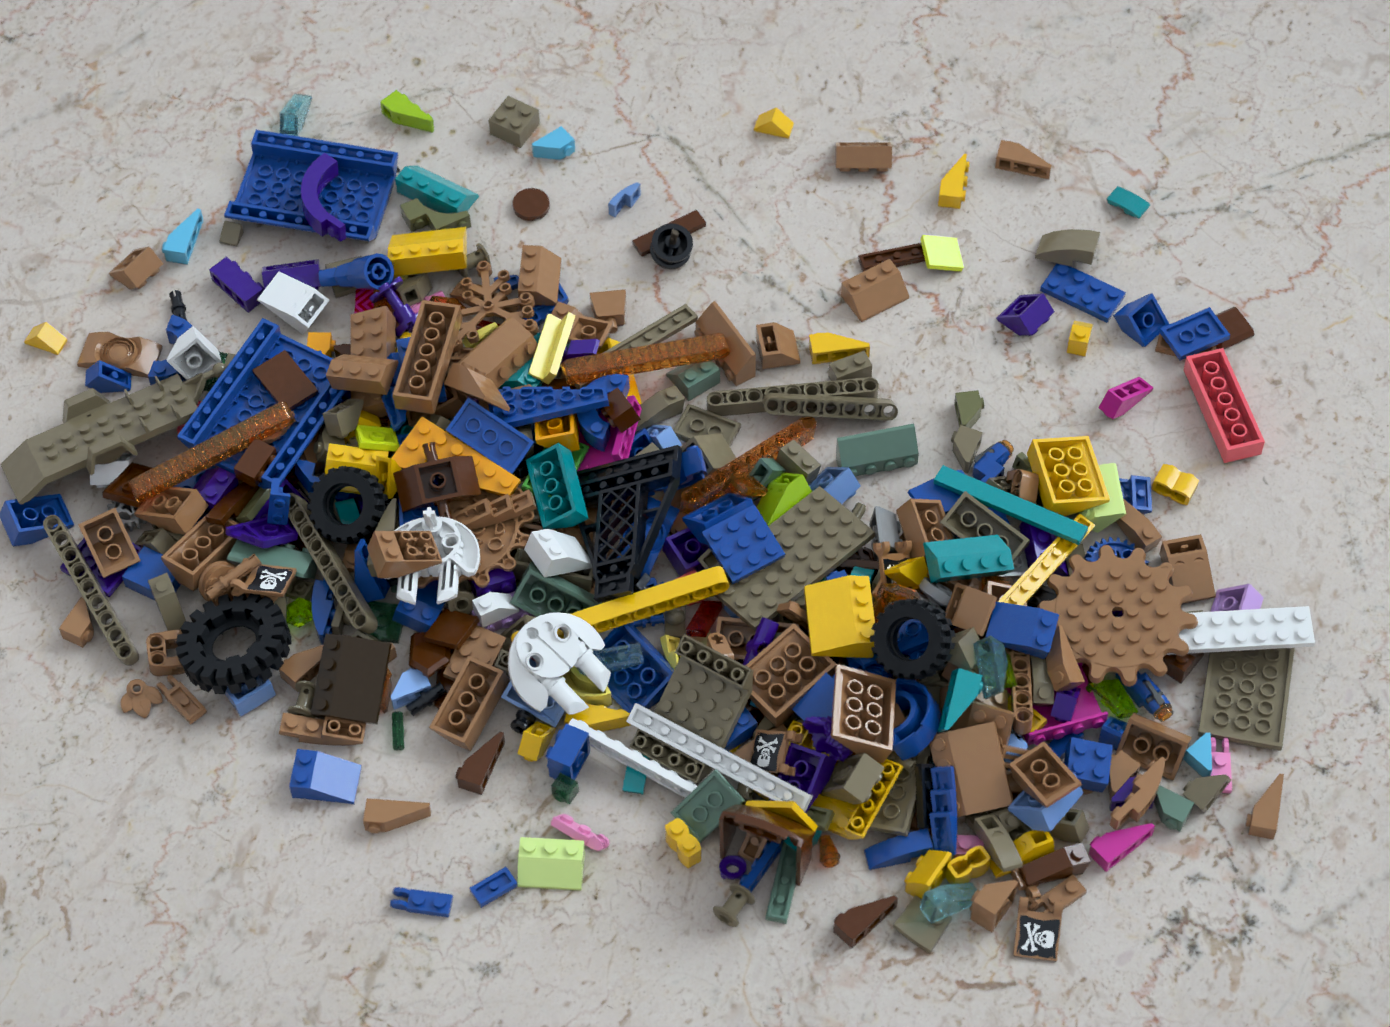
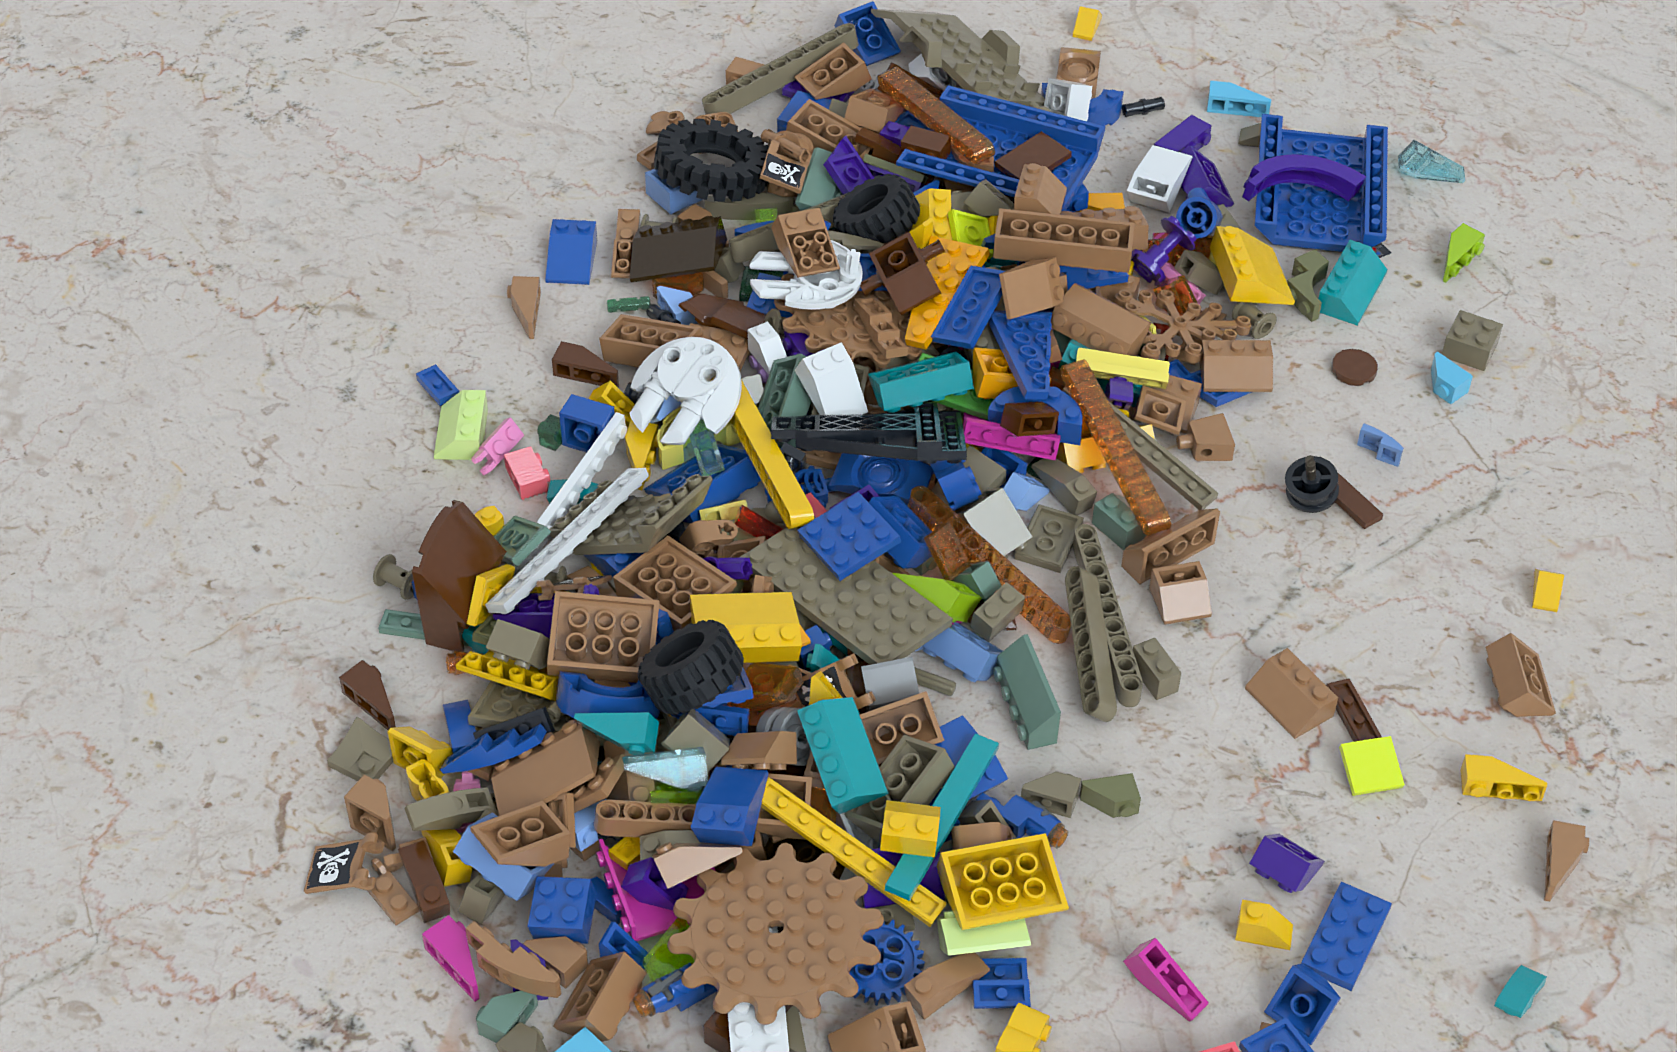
camera: 85 degrees right, 10 degrees down
(107, 378) = (1042, 63): blue slope -> none
(137, 268) = (1186, 70): medium nougat slope -> none
(167, 602) = (770, 114): dark tan slope -> none
(278, 504) = (879, 162): blue bracket -> none
(423, 902) = (426, 337): blue hinge -> none
(612, 808) = (527, 472): none -> coral brick
(832, 347) = (1188, 646): yellow slope -> none
(946, 900) = (382, 764): clear light blue slope -> none
(1034, 517) = (910, 828): none -> yellow slope
(1068, 246) = (1413, 911): dark tan slope -> none

